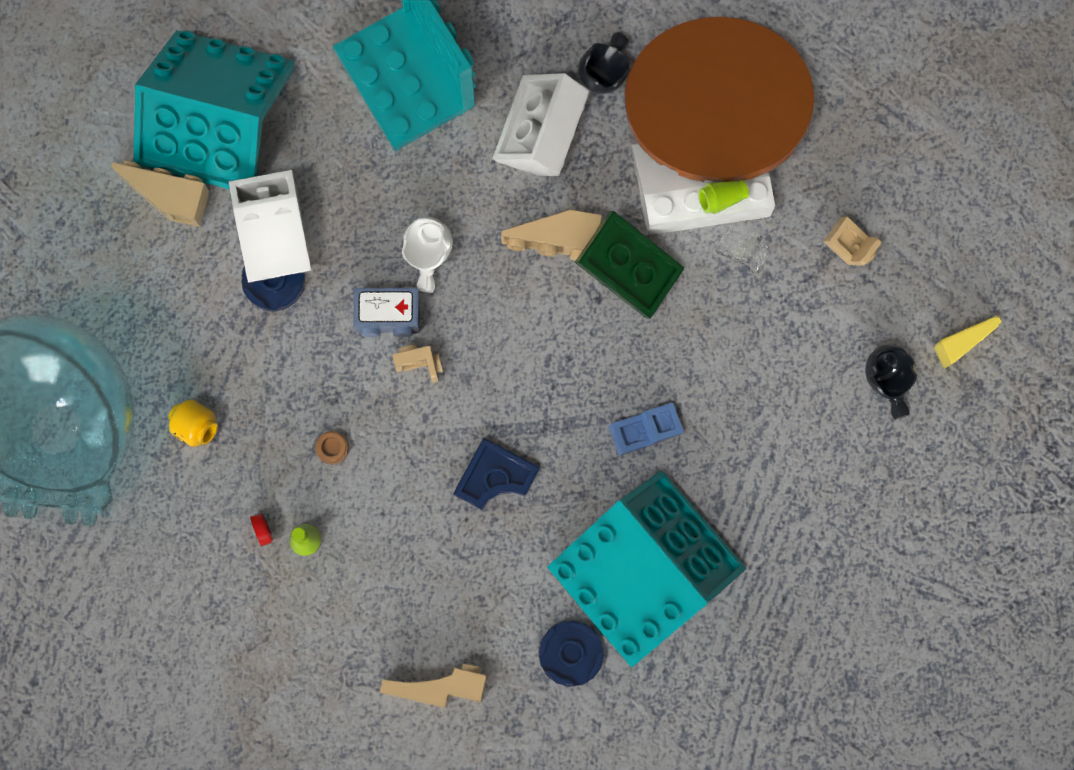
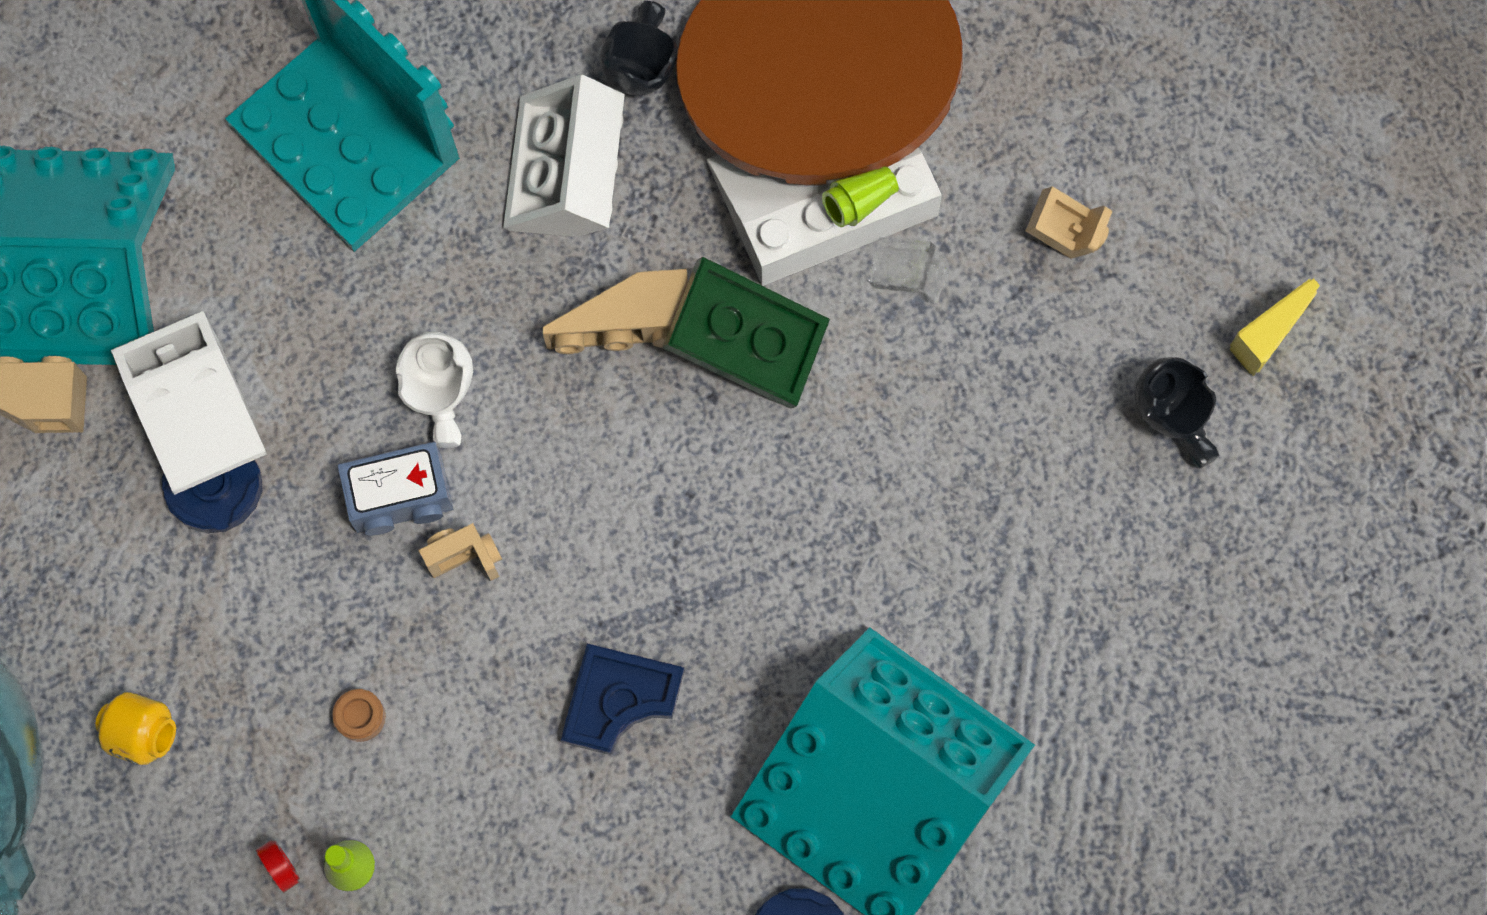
camera: 10 degrees left, 5 degrees down
(645, 429) = (830, 572): medium blue slope -> none

